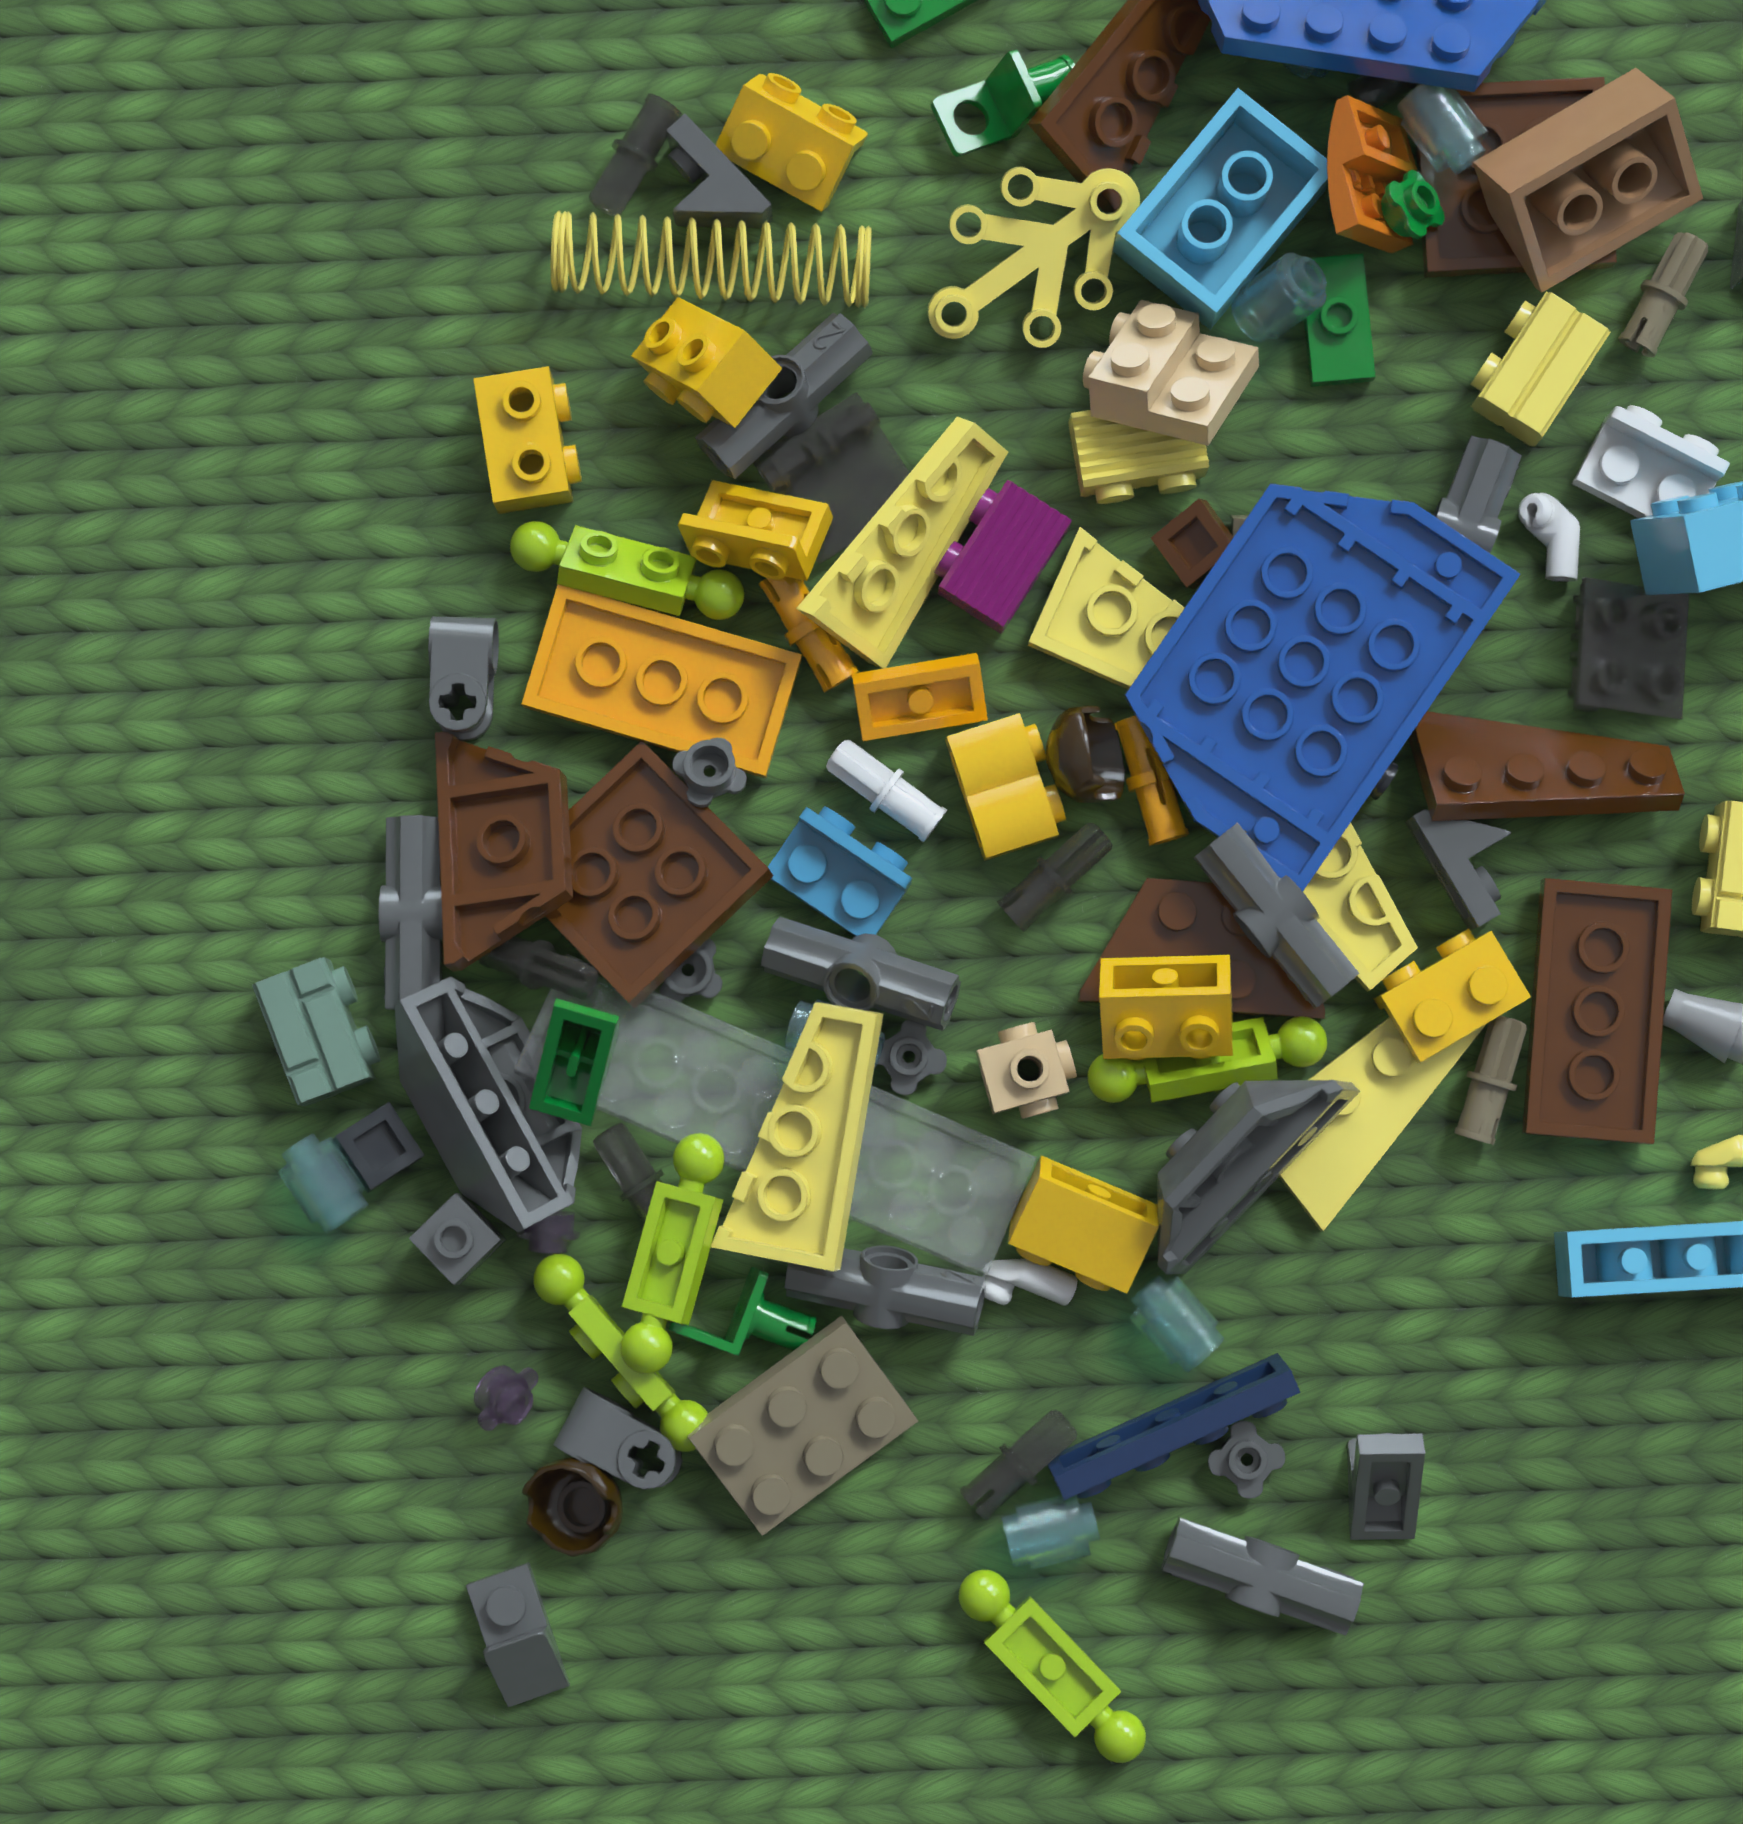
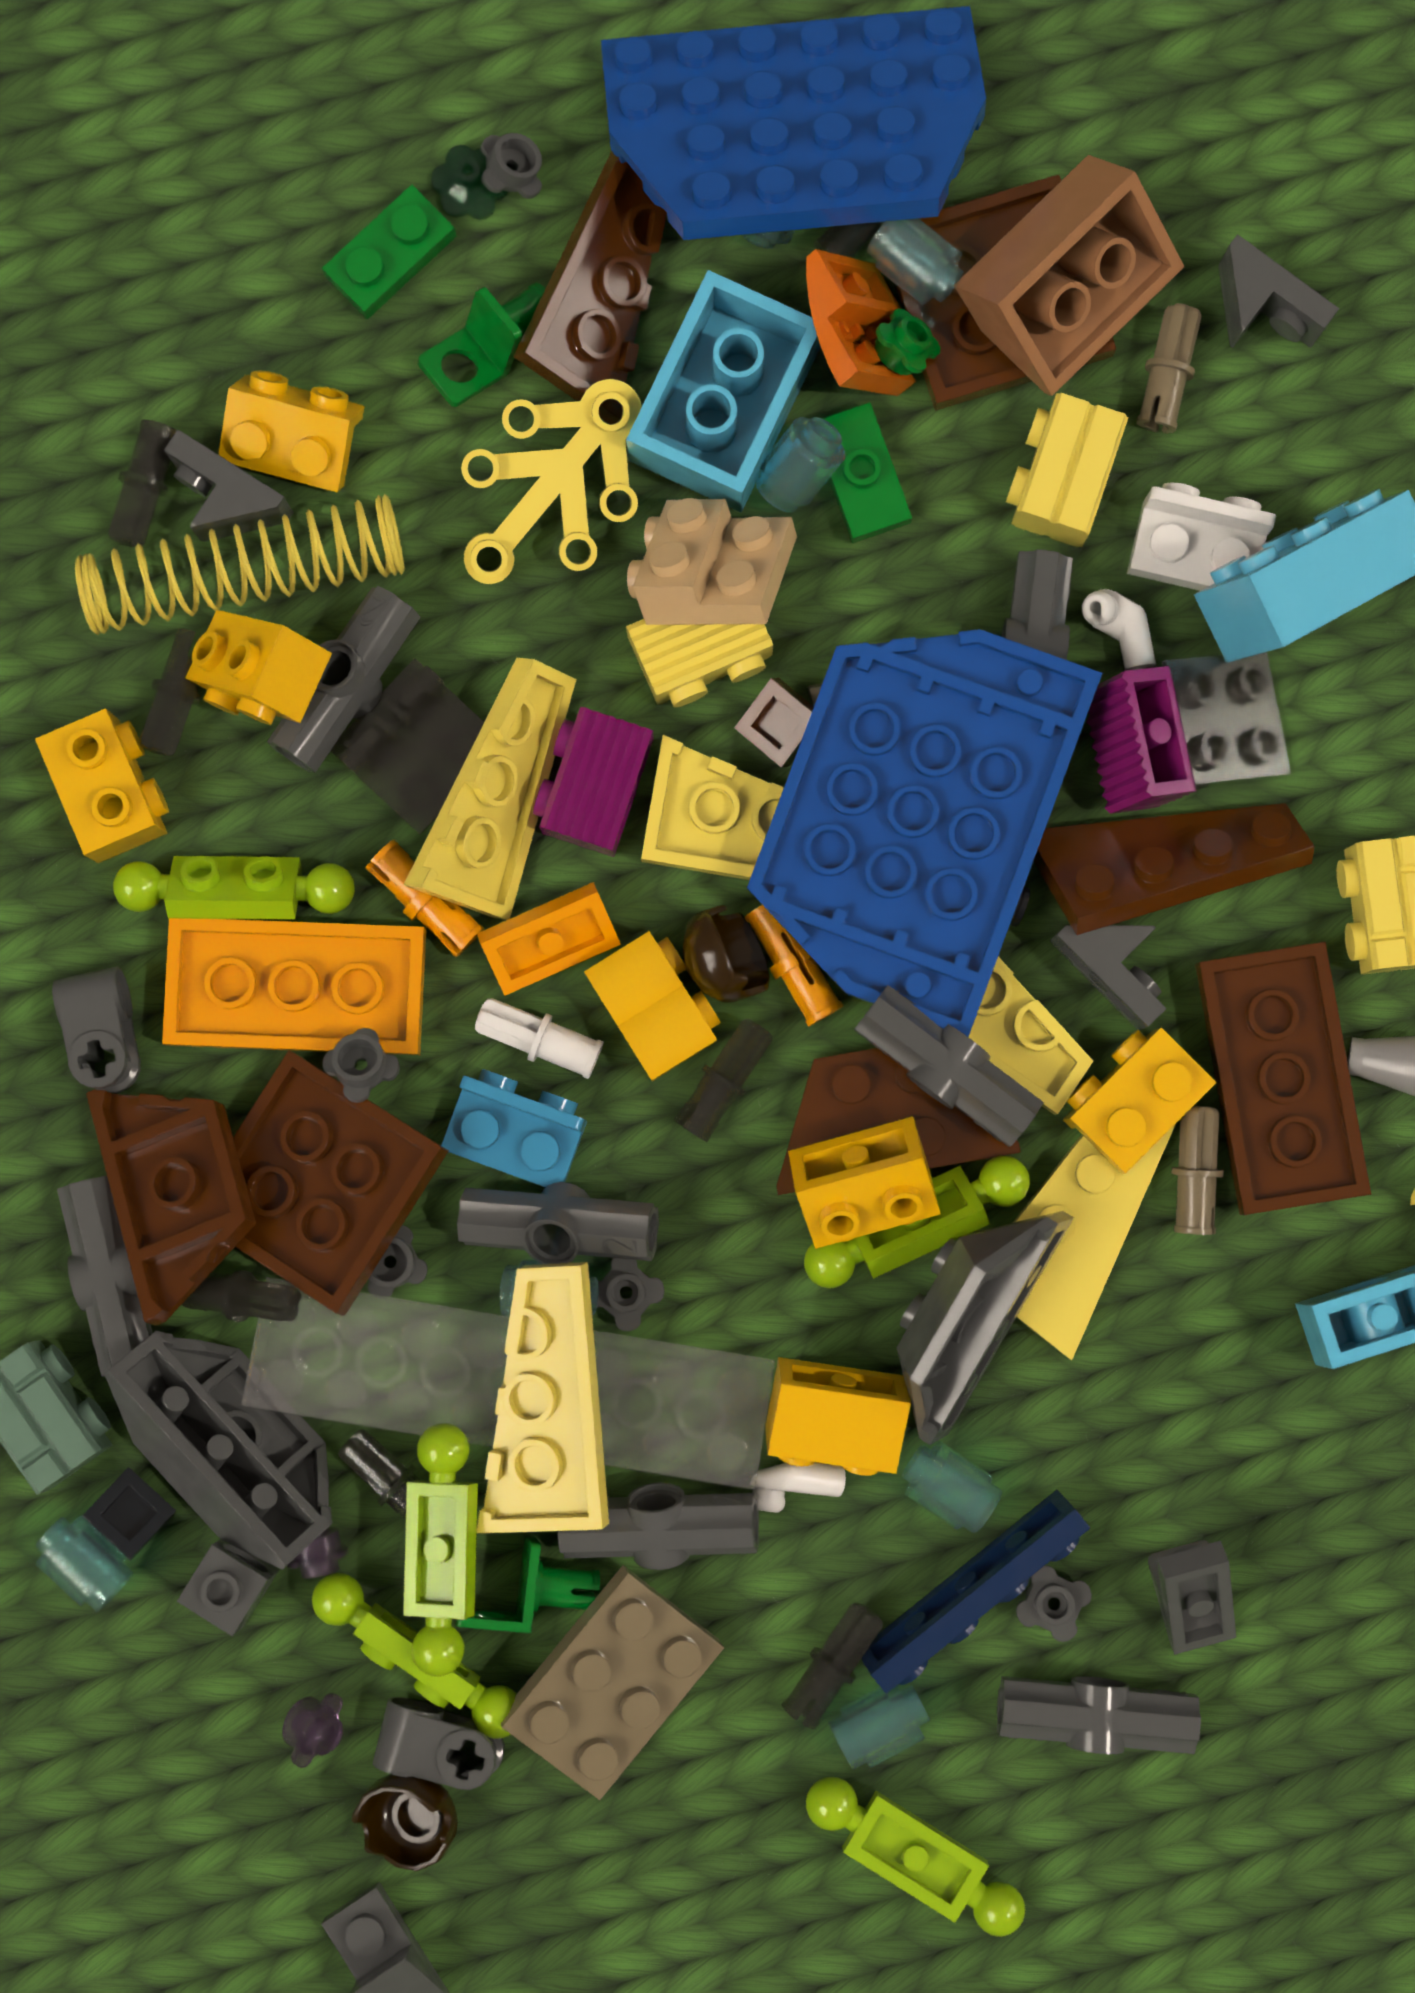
camera: 10 degrees left, 0 degrees up
(574, 1062) = (297, 1386): green slope -> none
(613, 371) = (172, 699): none -> clear smoke axle
(757, 531) = (349, 817): yellow bracket -> none
(1000, 1075) = (730, 1302): tan brick -> none
(1541, 649) = (1140, 741): none -> magenta brick

